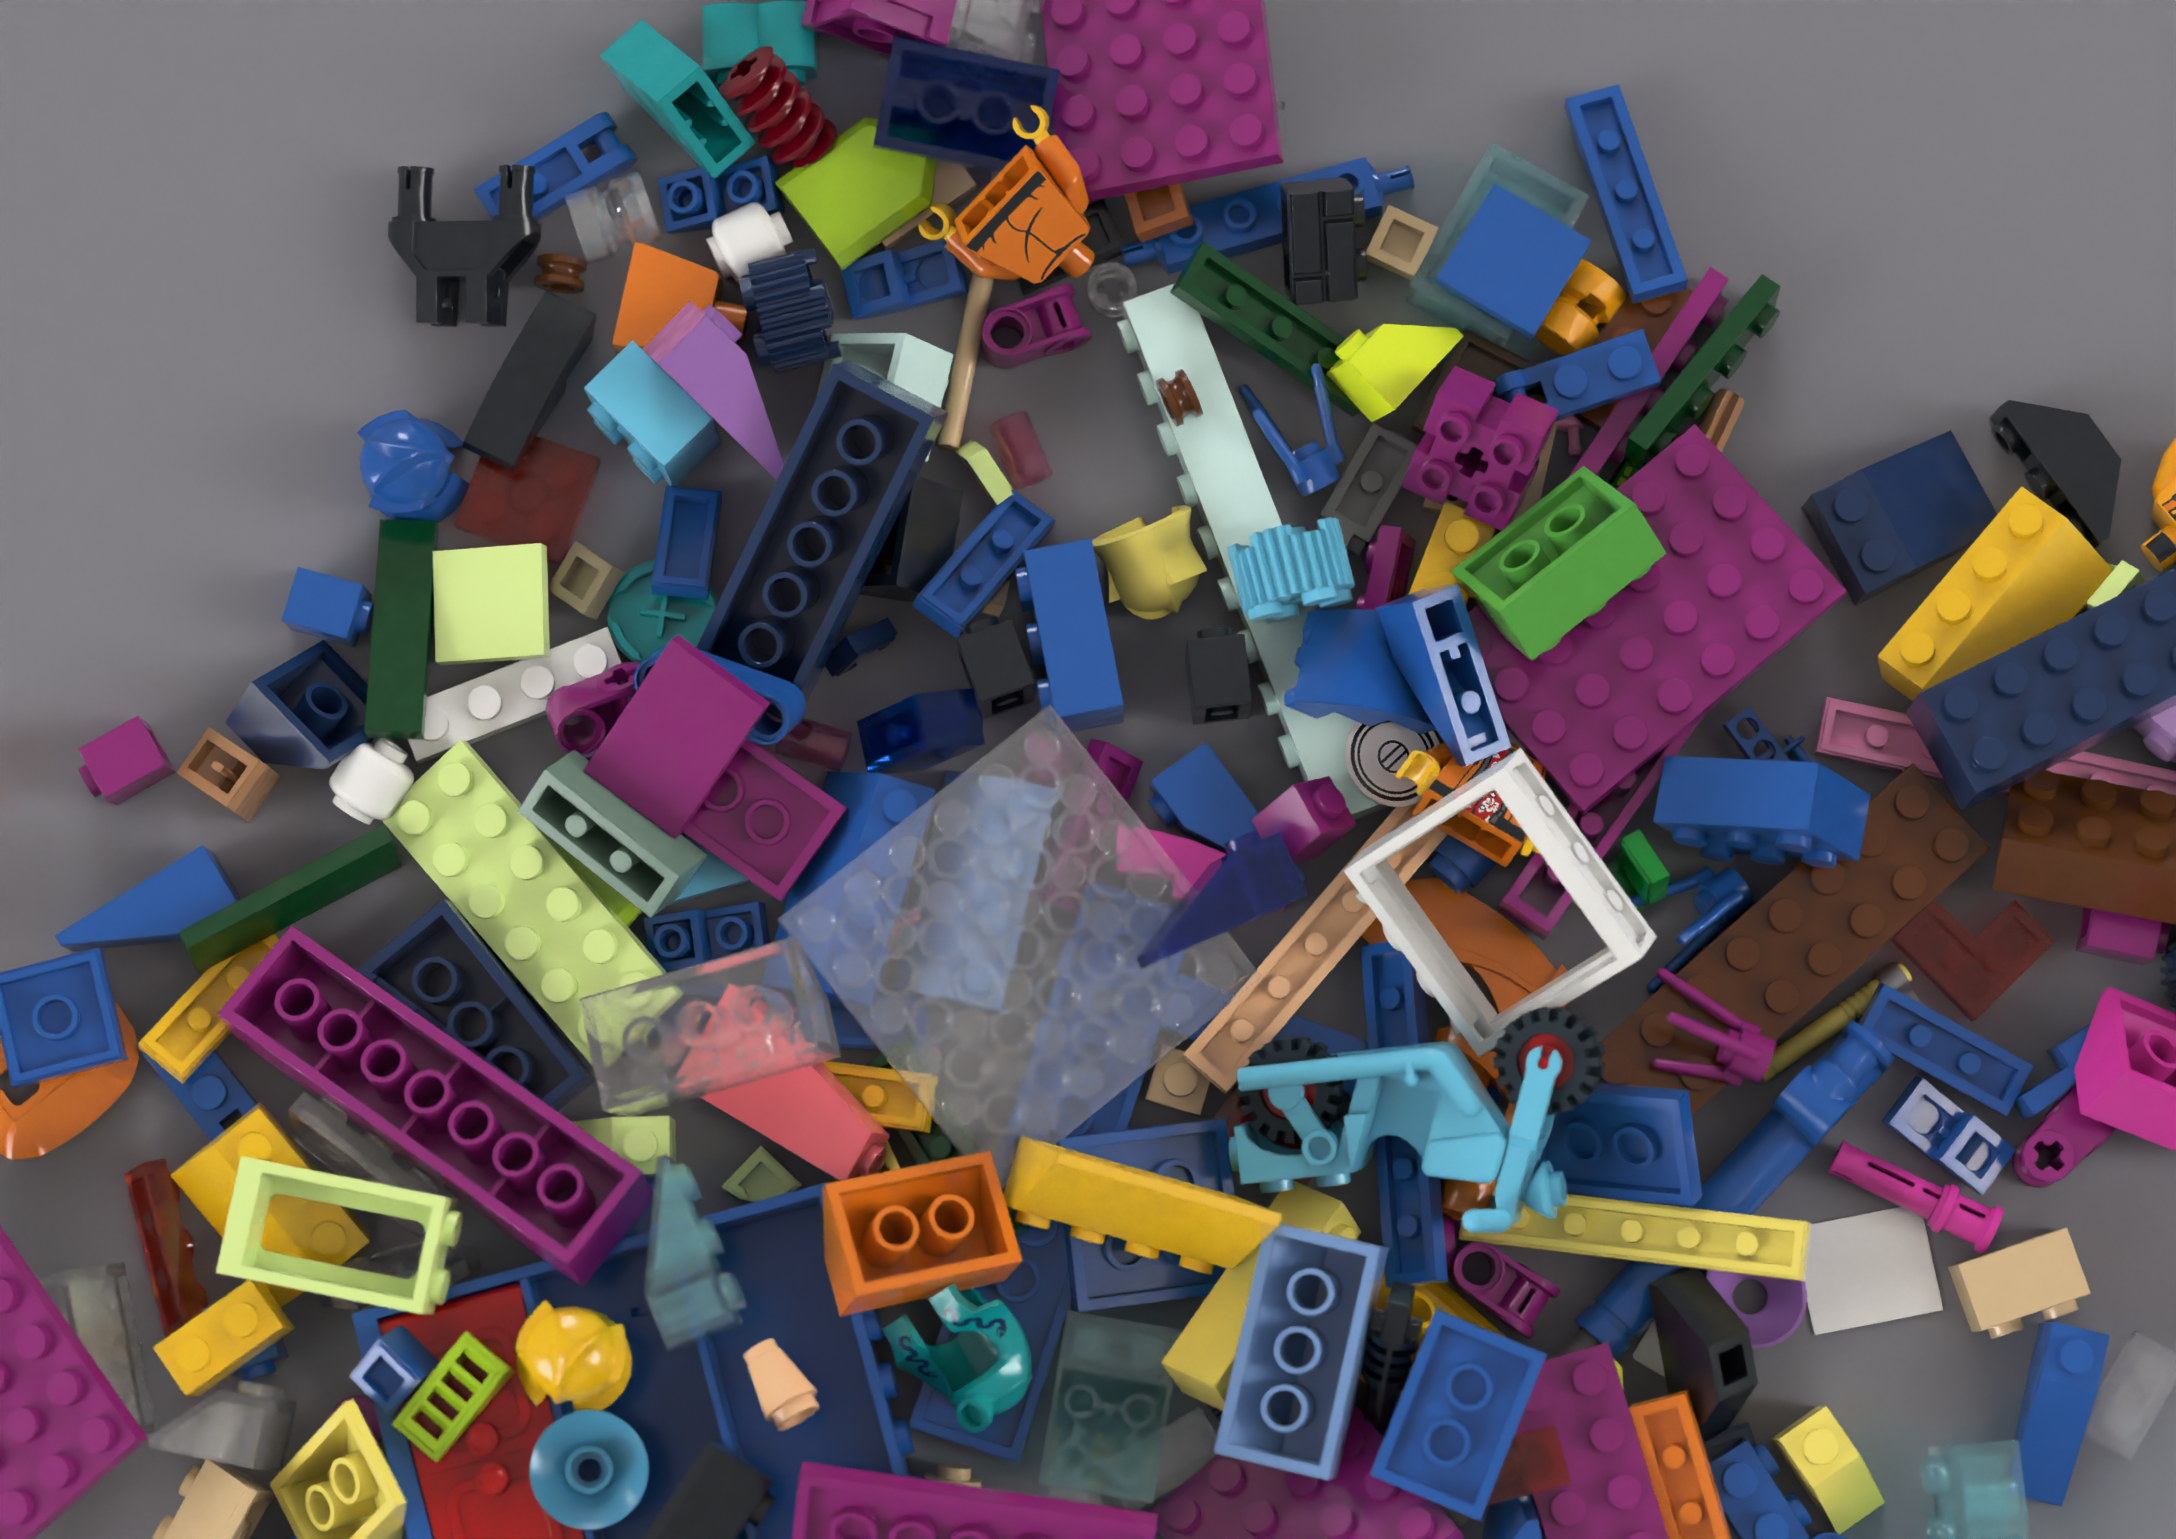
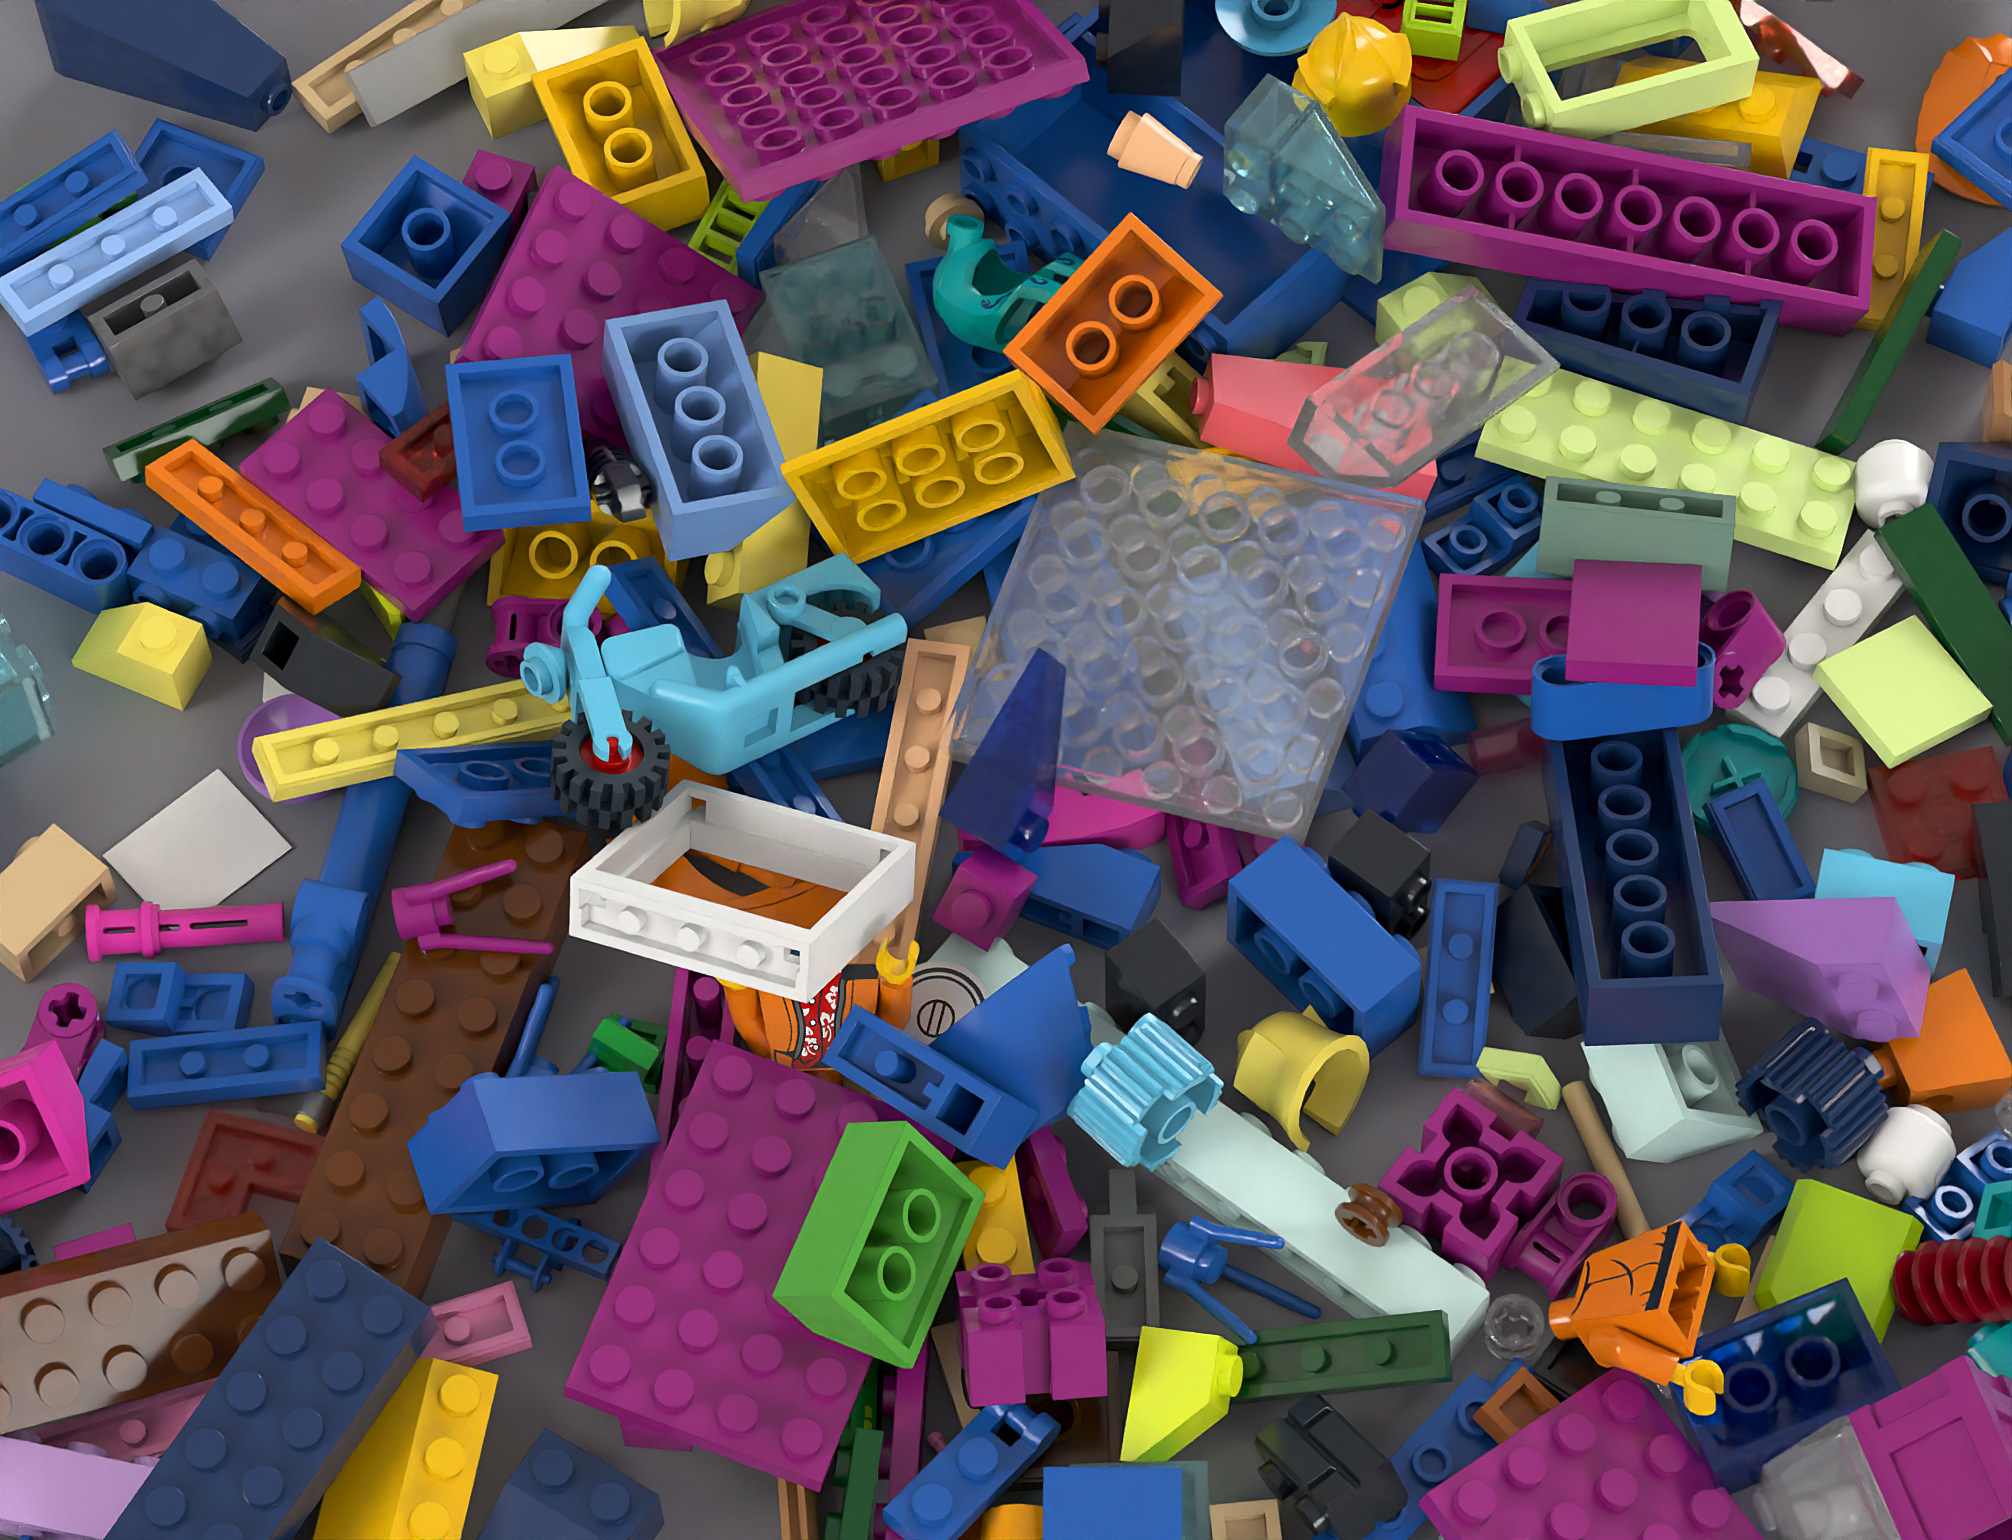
camera: 150 degrees right, 20 degrees down
(1099, 366) = (1467, 1152): none -> magenta brick

